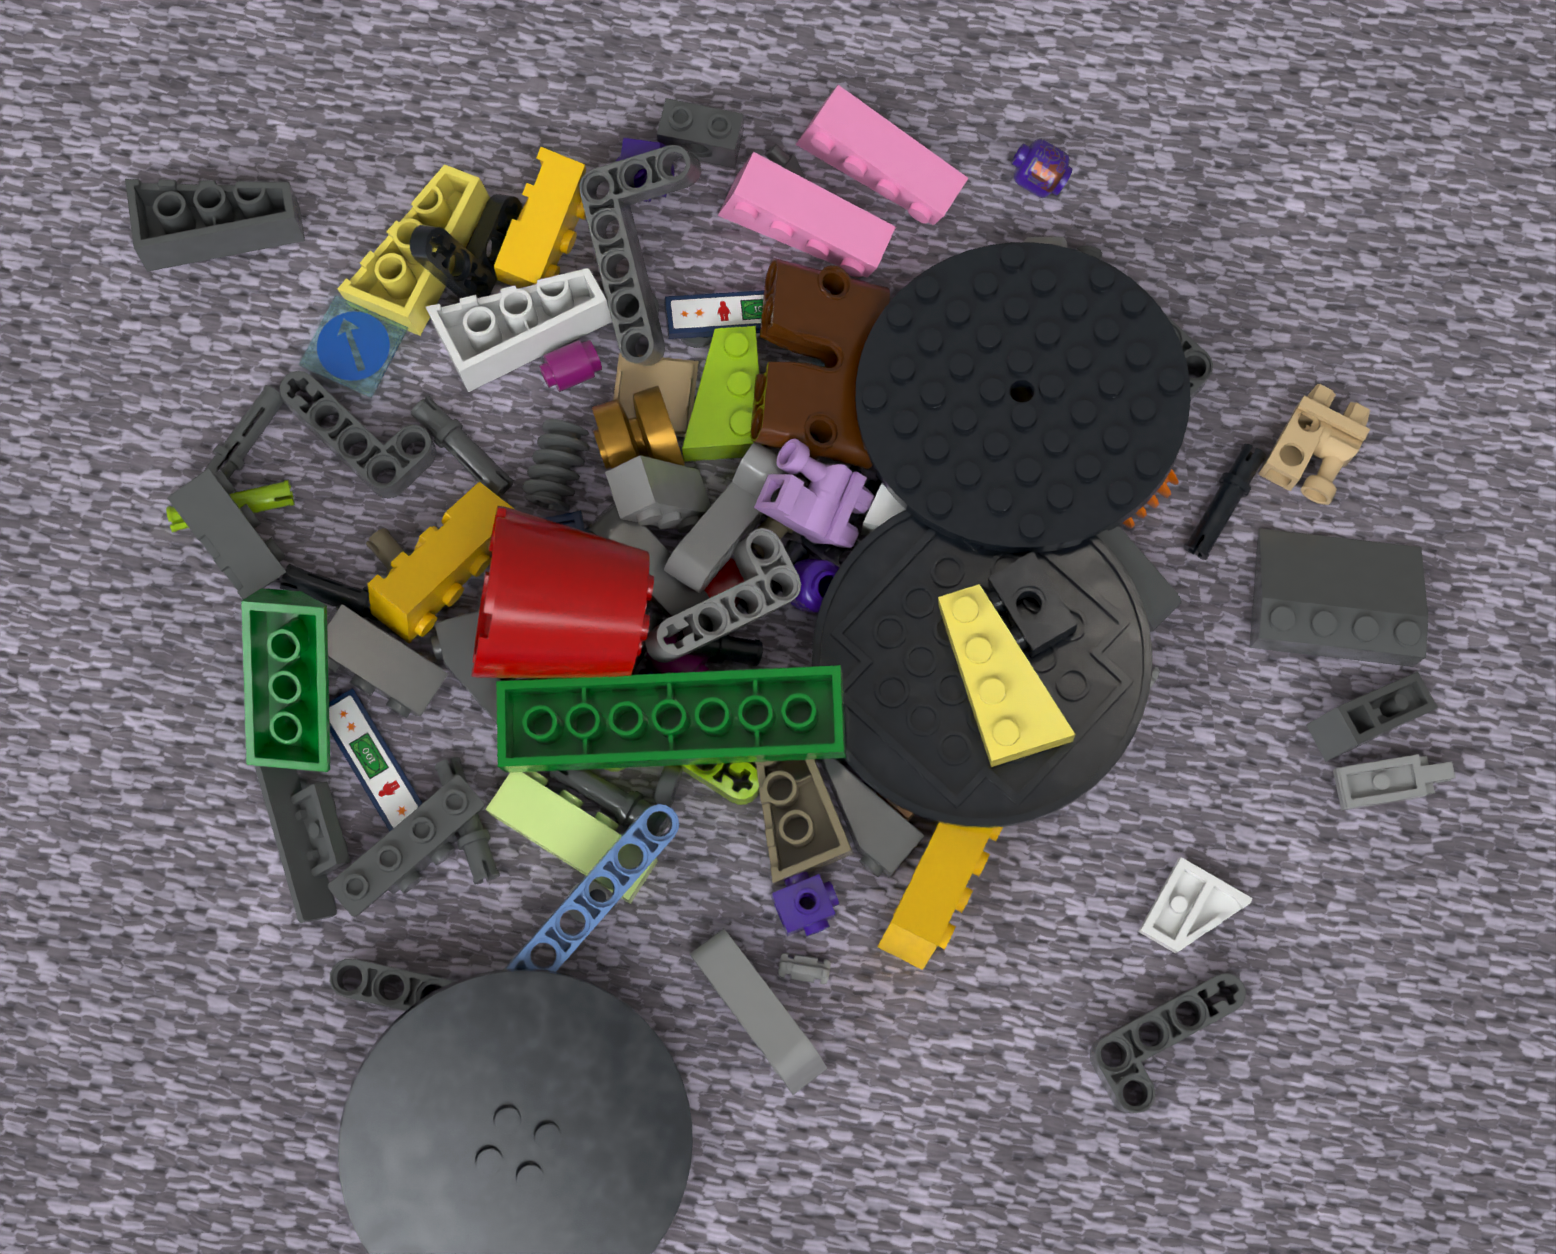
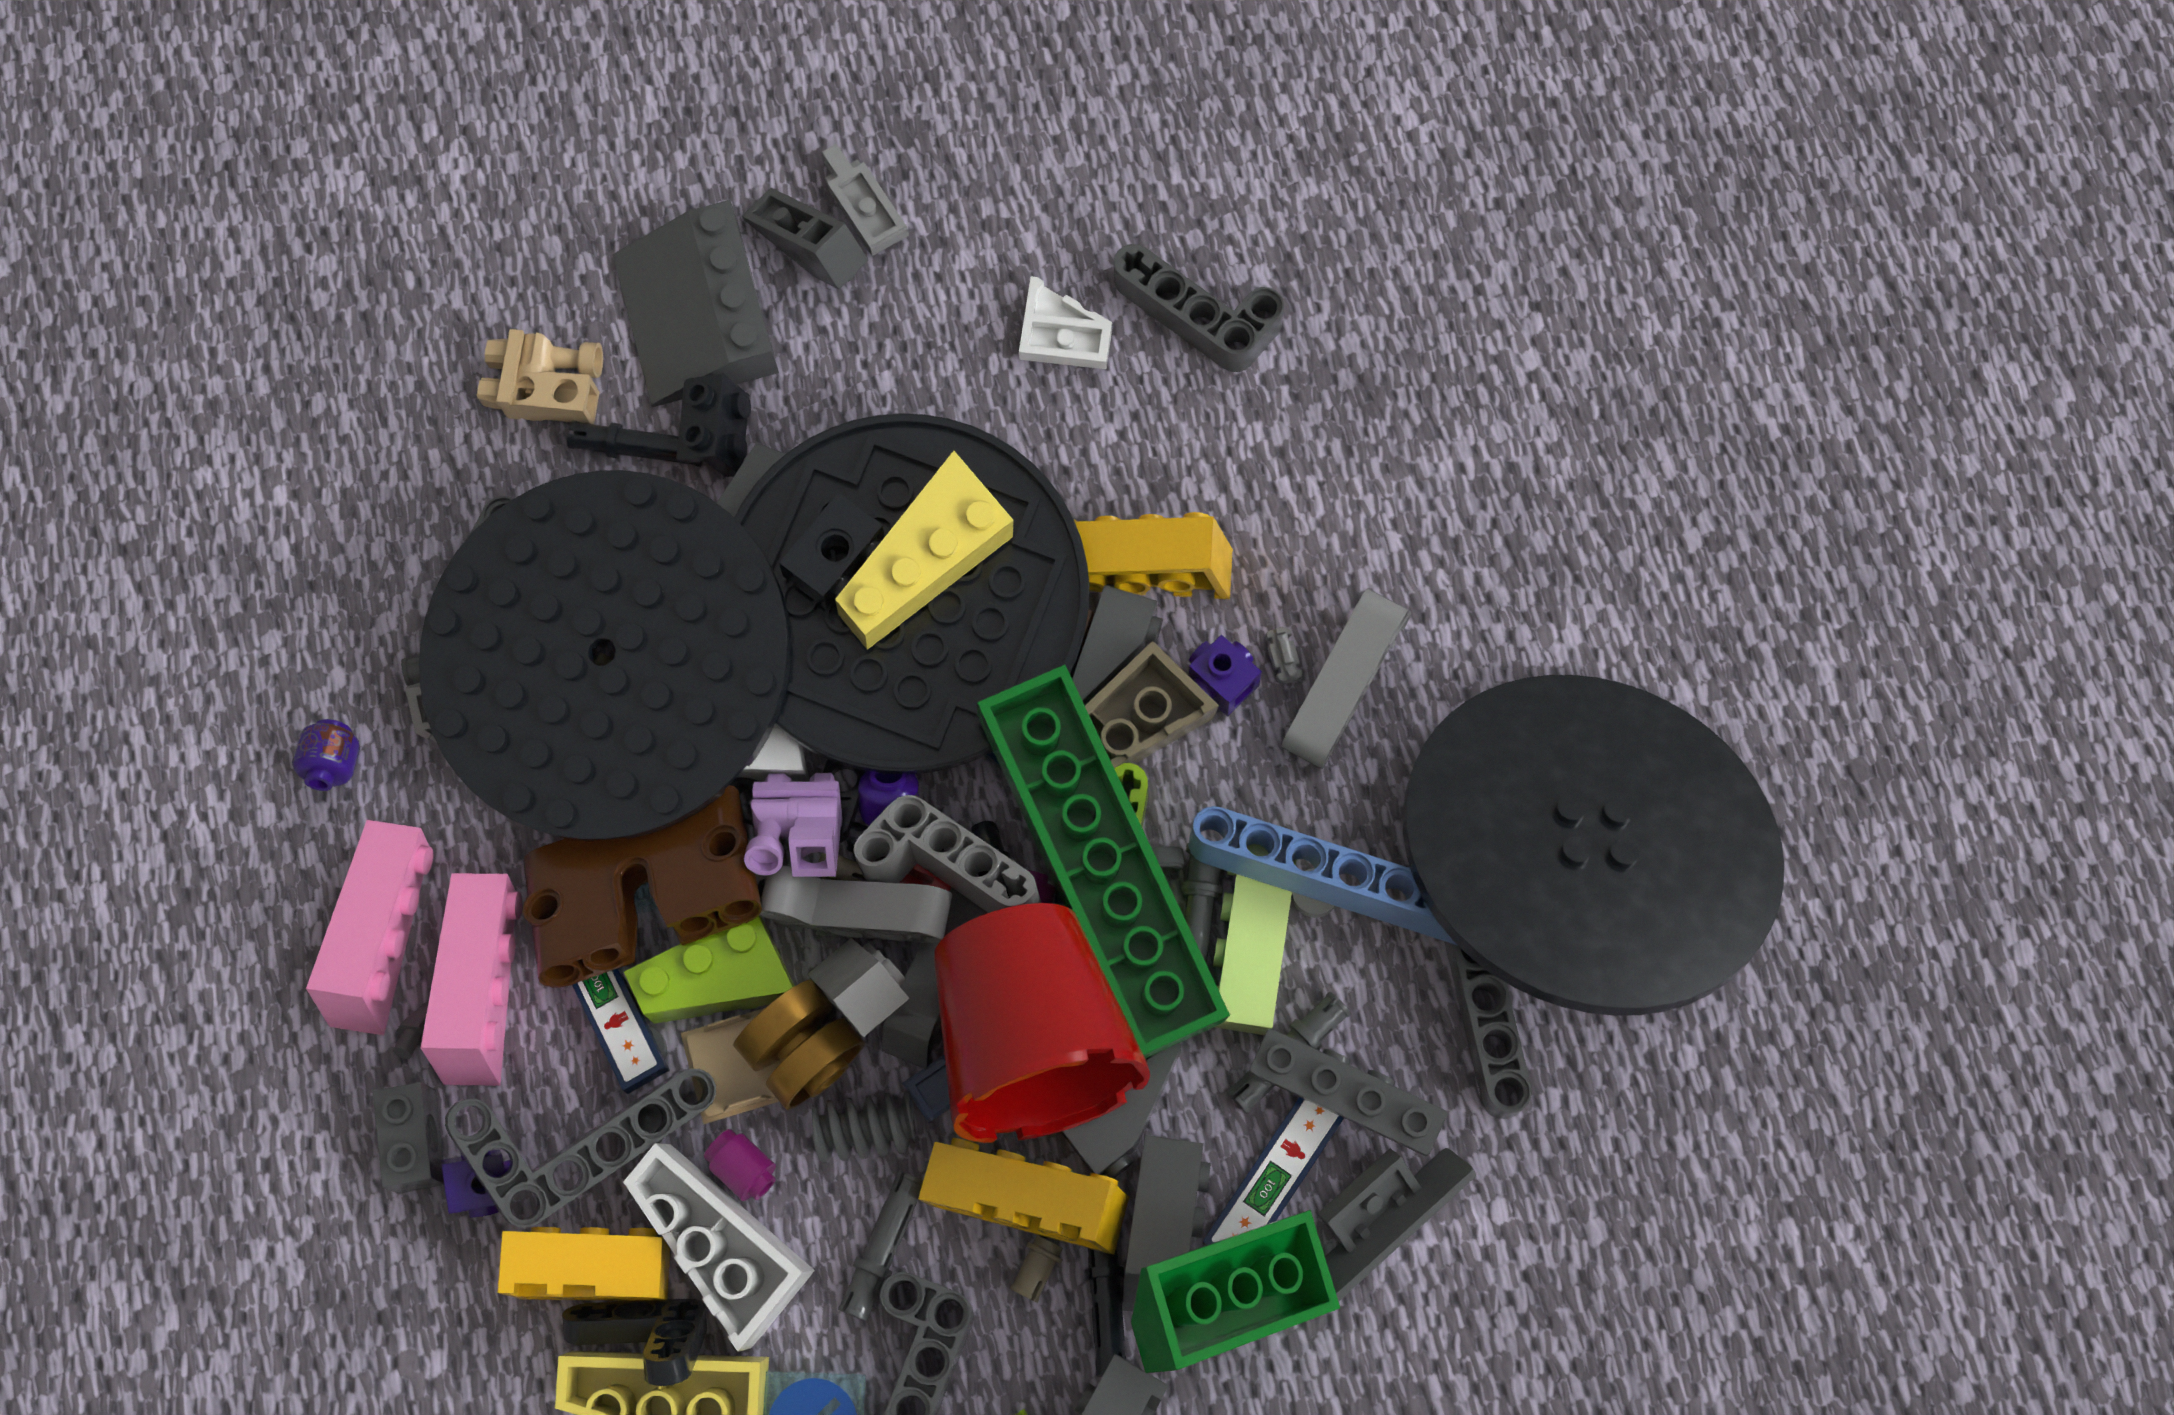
camera: 105 degrees left, 5 degrees down
(1213, 569) = (714, 423): none -> black bracket

